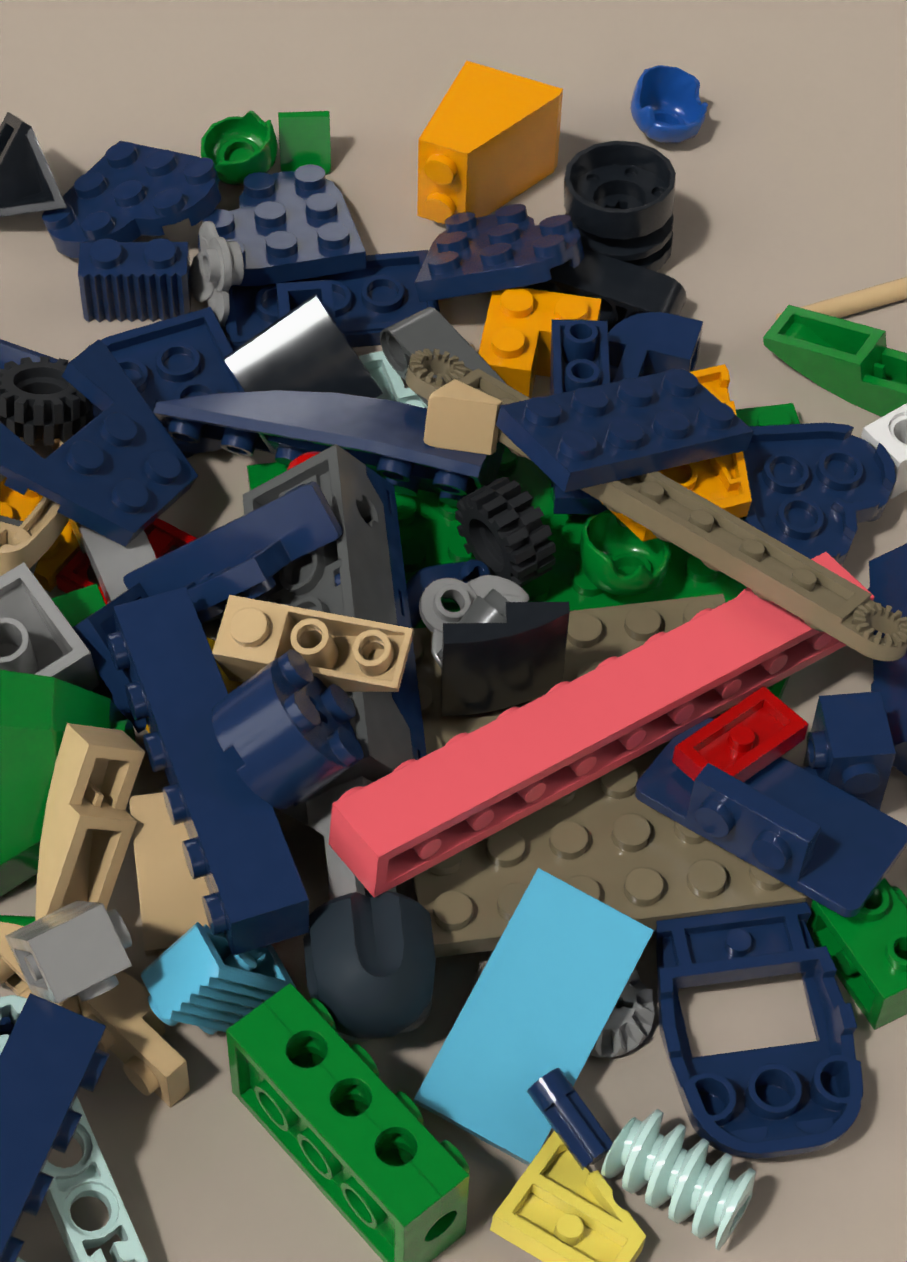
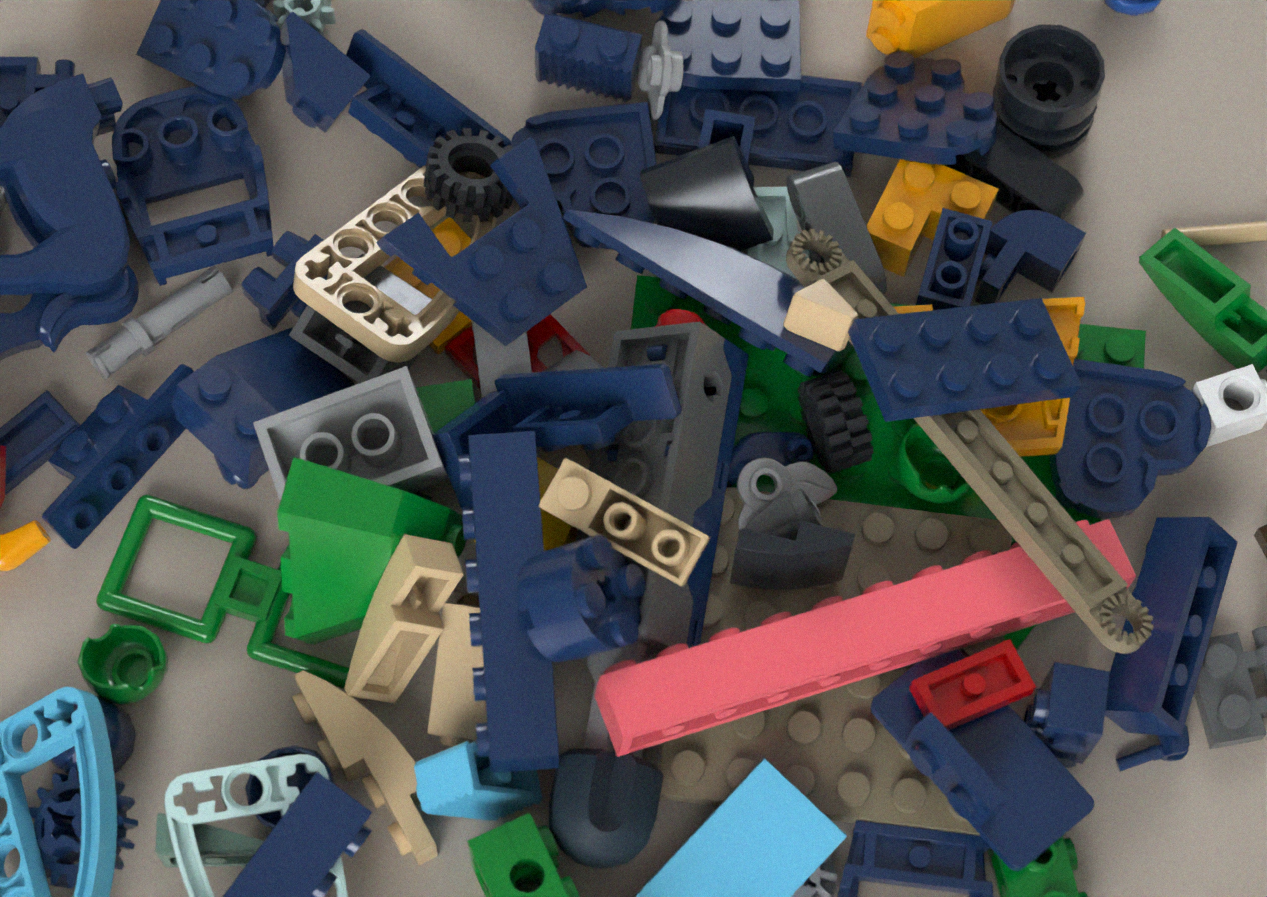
camera: 15 degrees right, 15 degrees up
(72, 951) = (361, 737): light grey brick -> none

